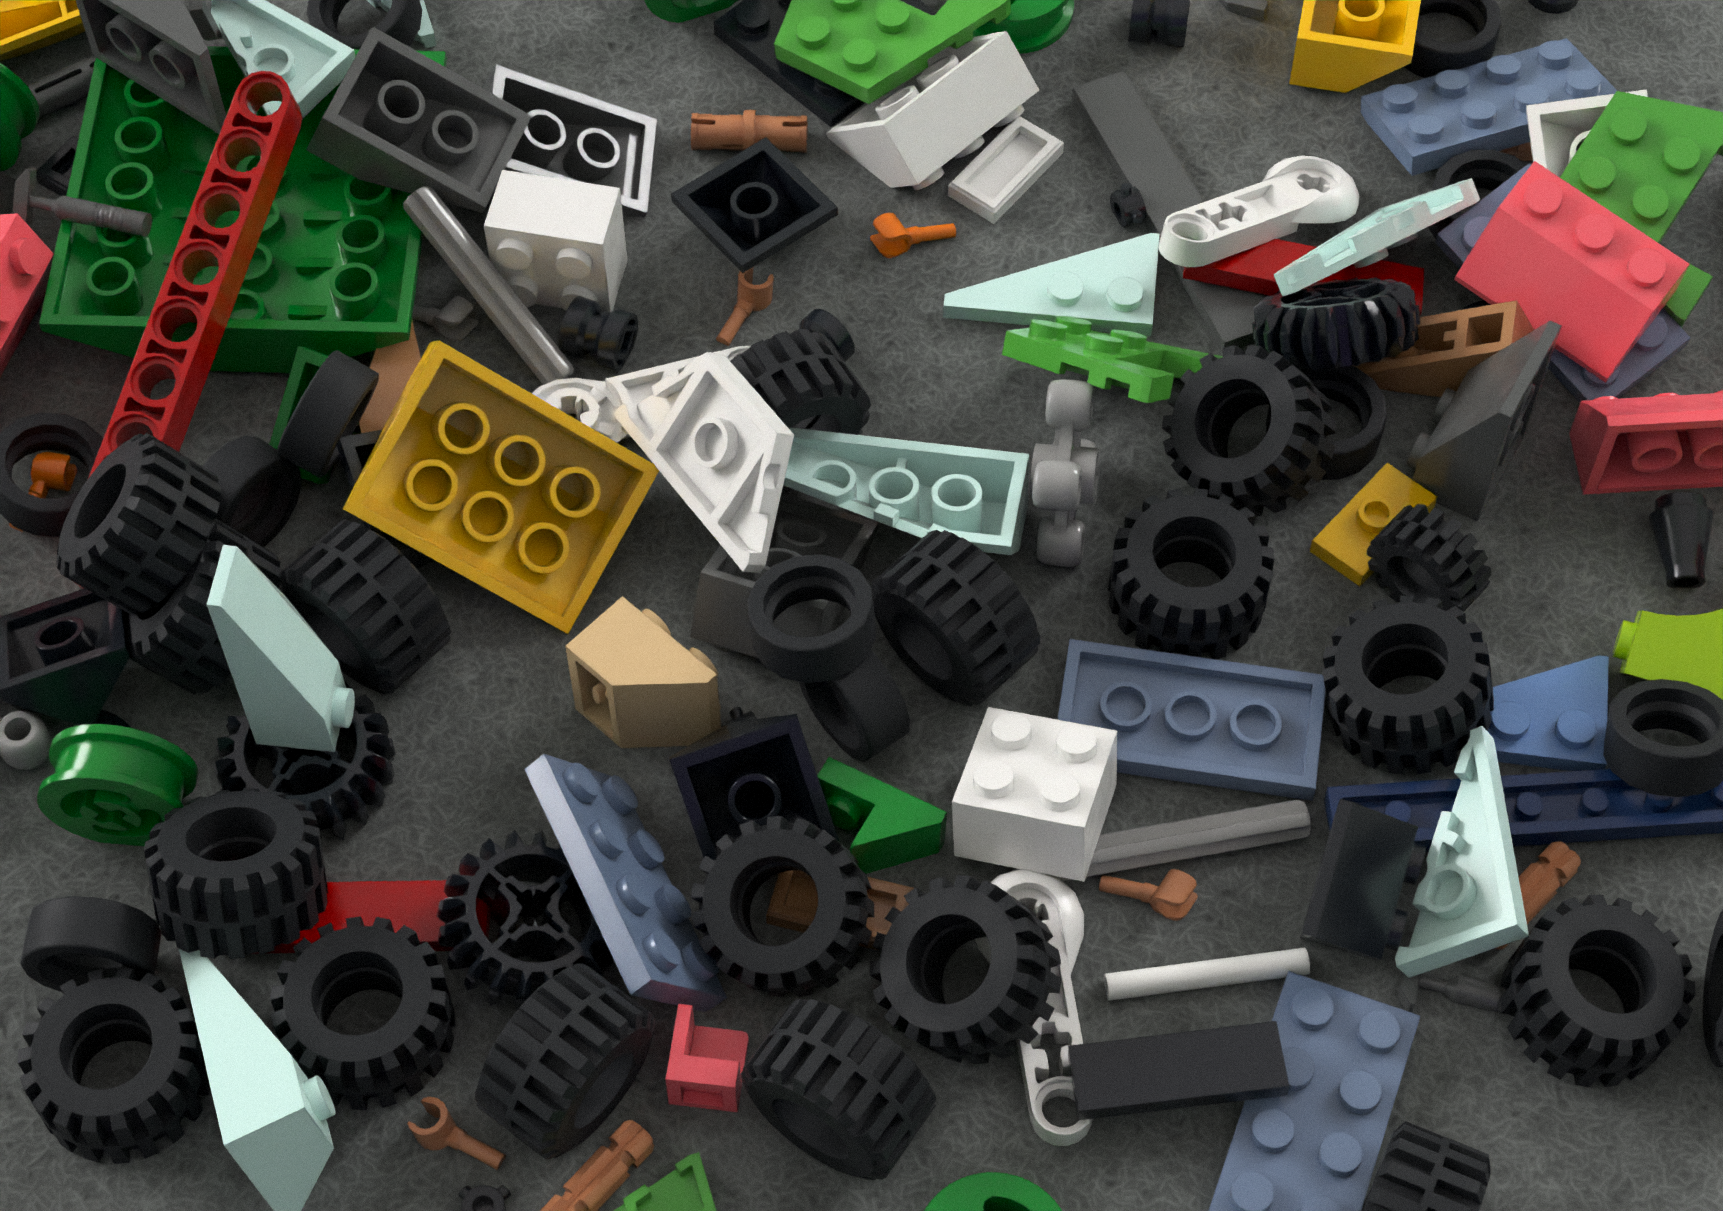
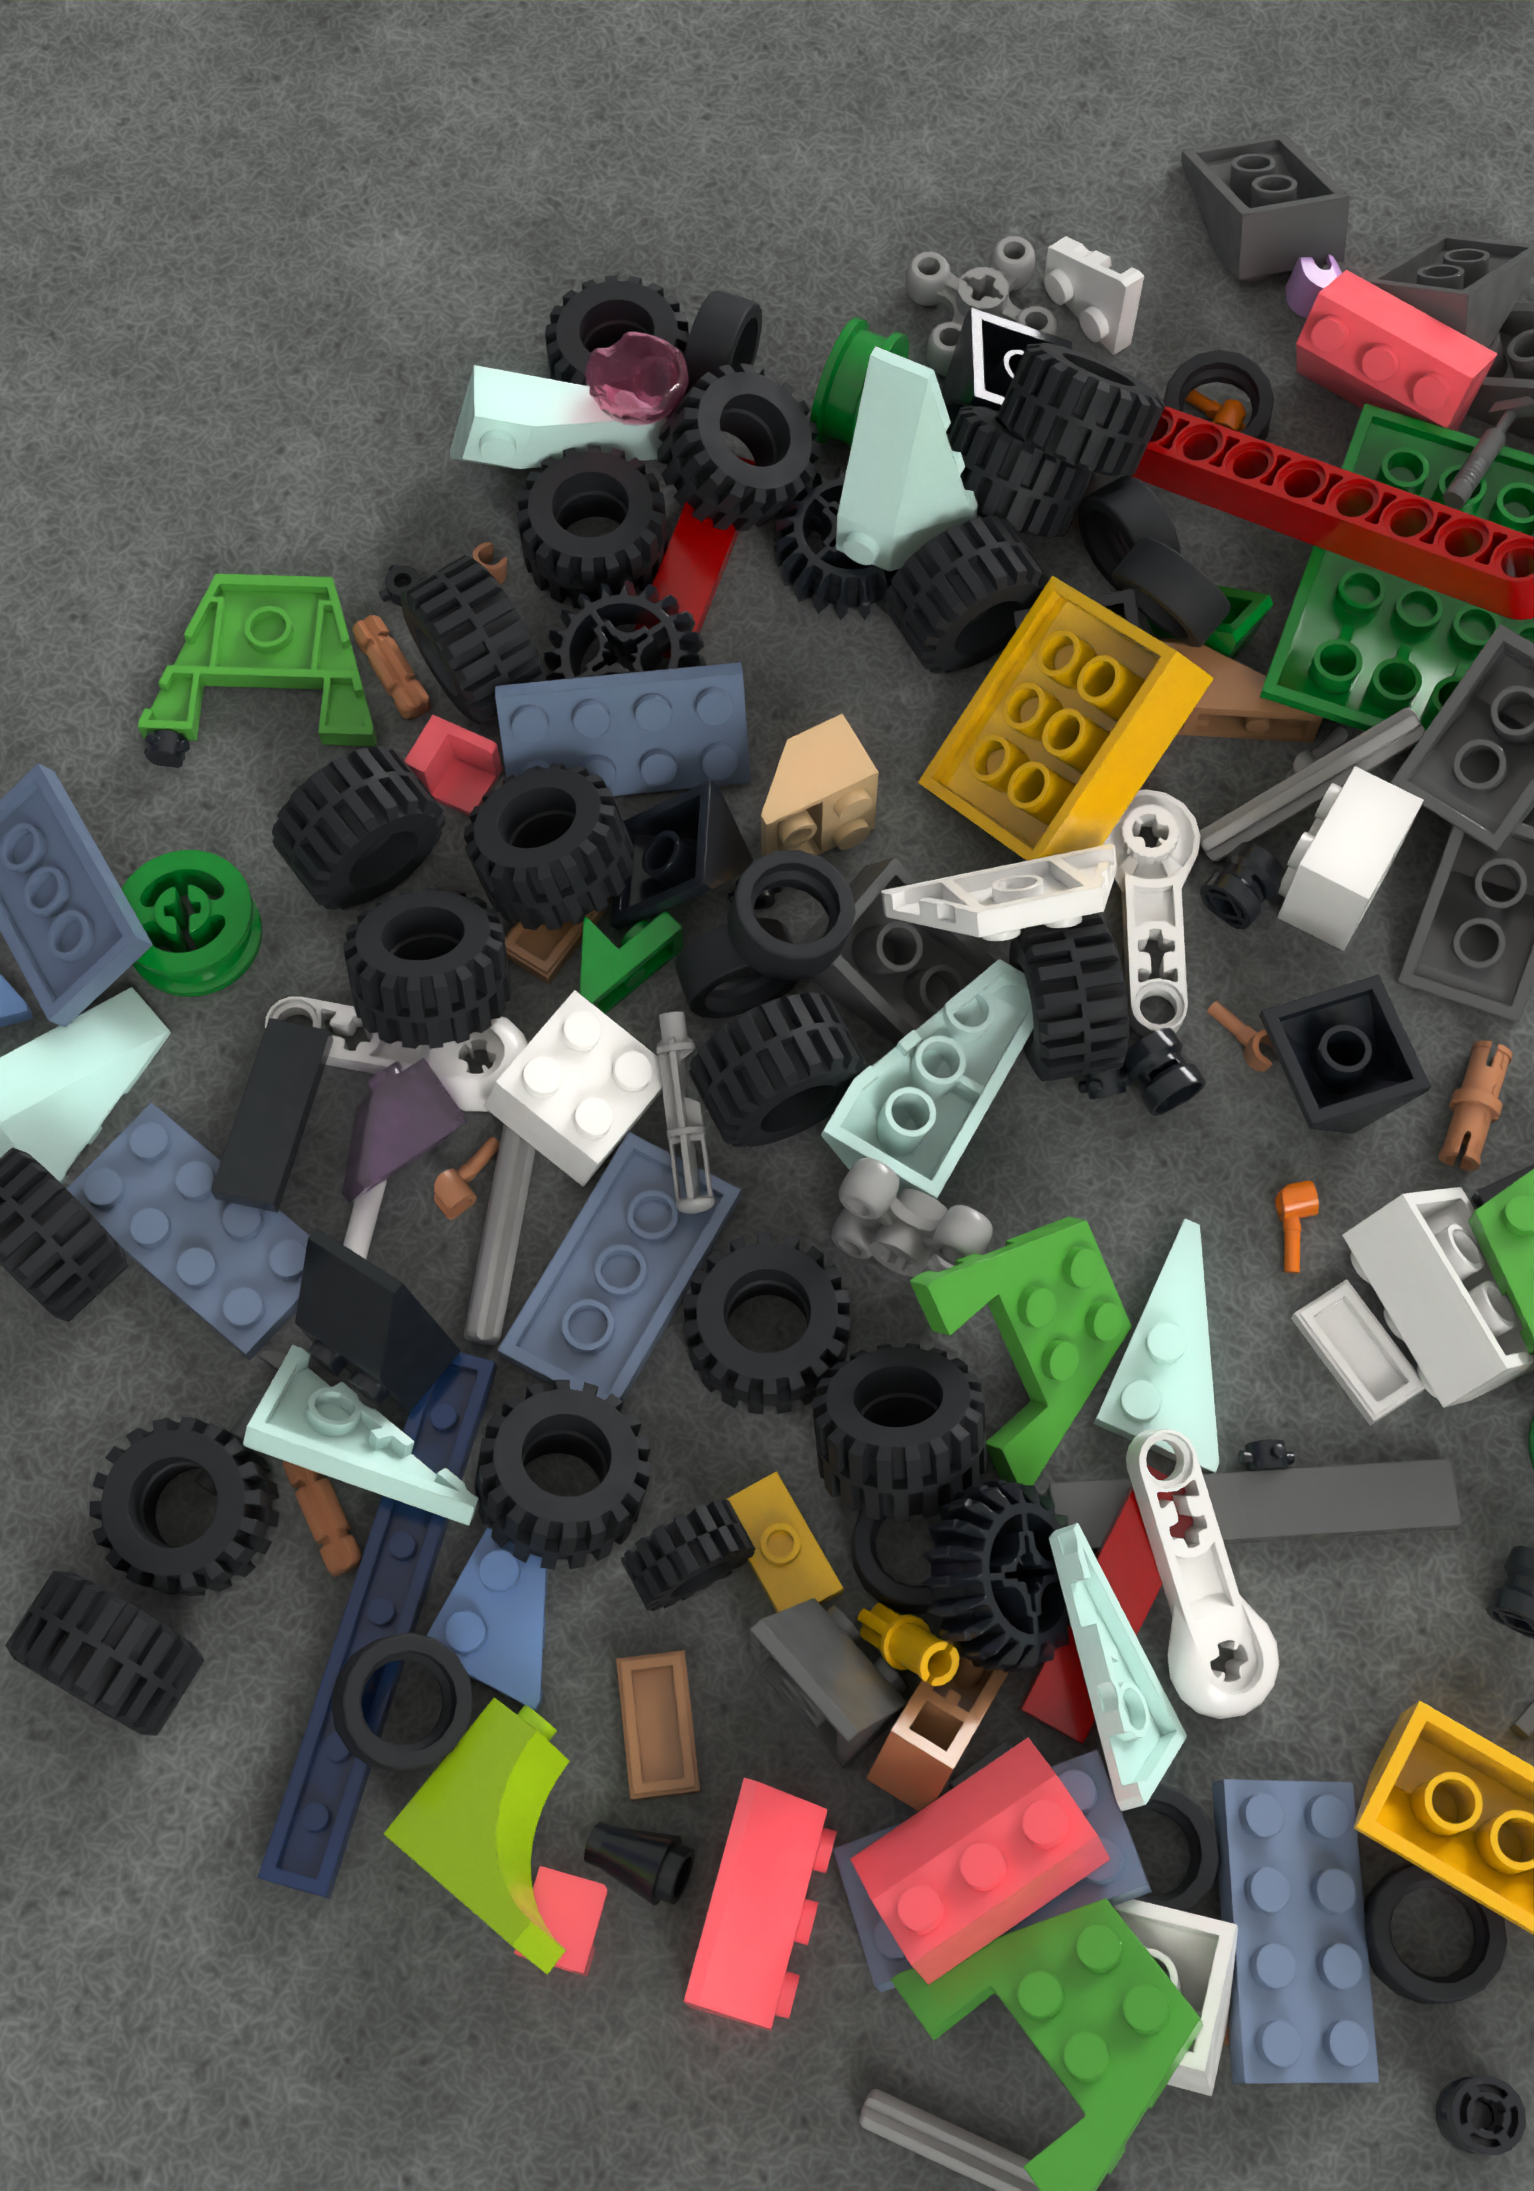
camera: 110 degrees right, 10 degrees up
(194, 968) = (637, 379): none -> clear pink hair
(1030, 684) = (682, 1114): none -> light grey piece
(1148, 946) = (397, 1125): none -> clear purple slope
(1419, 386) = (909, 1644): none -> yellow axle
(1566, 568) = (658, 1725): none -> medium nougat tile

